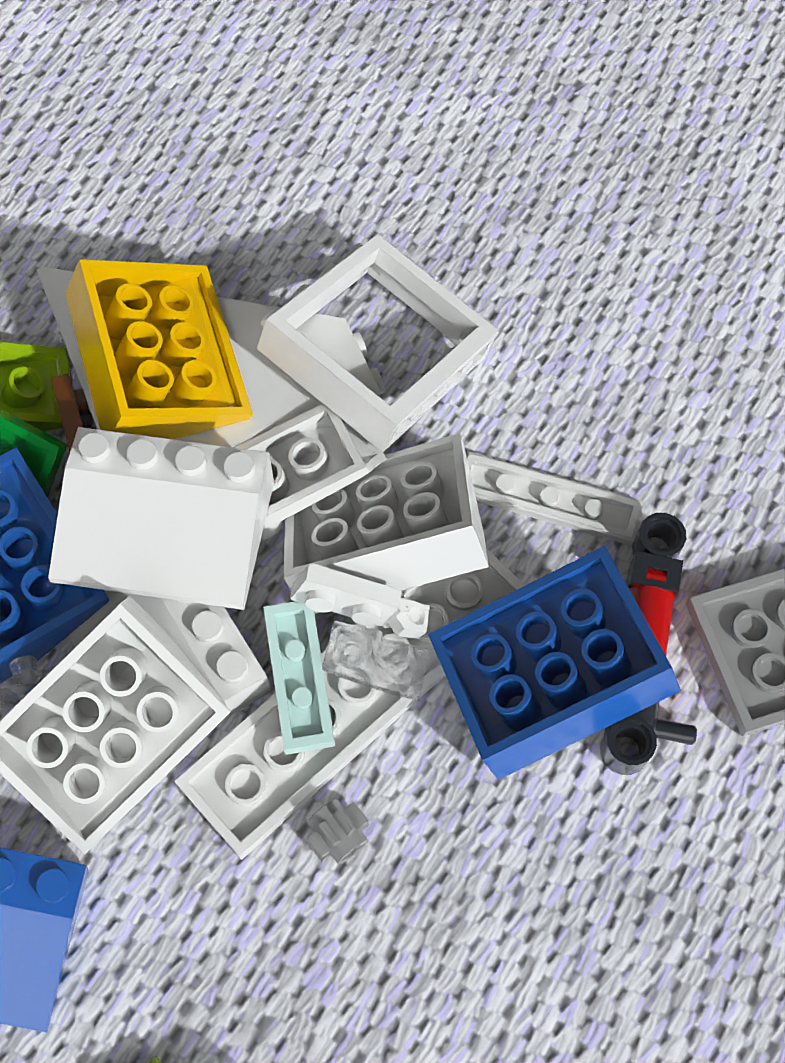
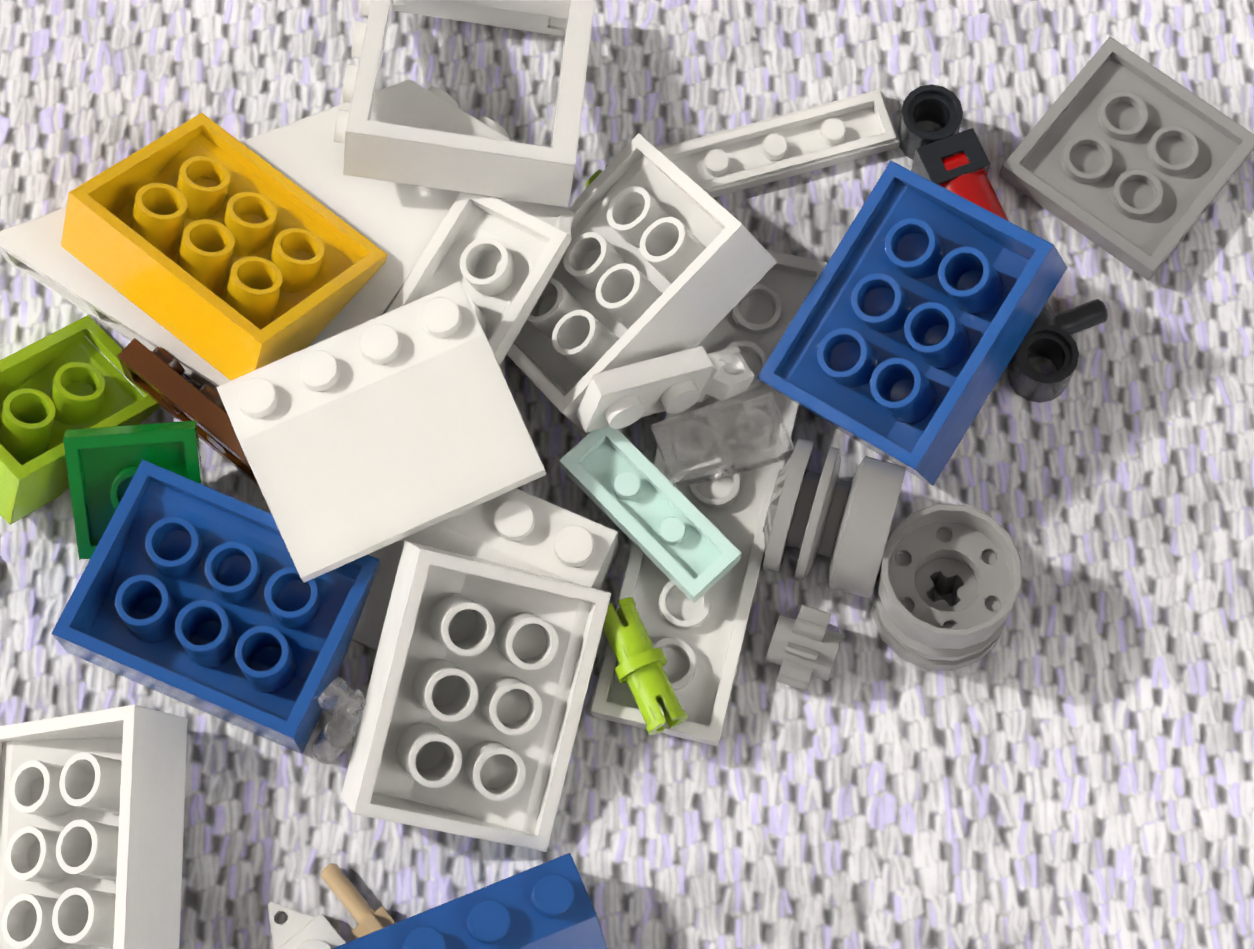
camera: 30 degrees left, 5 degrees up
(222, 773) = (642, 667): none -> lime pin
(404, 748) = (832, 517): none -> light grey wheel
(481, 839) = (955, 554): none -> light grey wheel

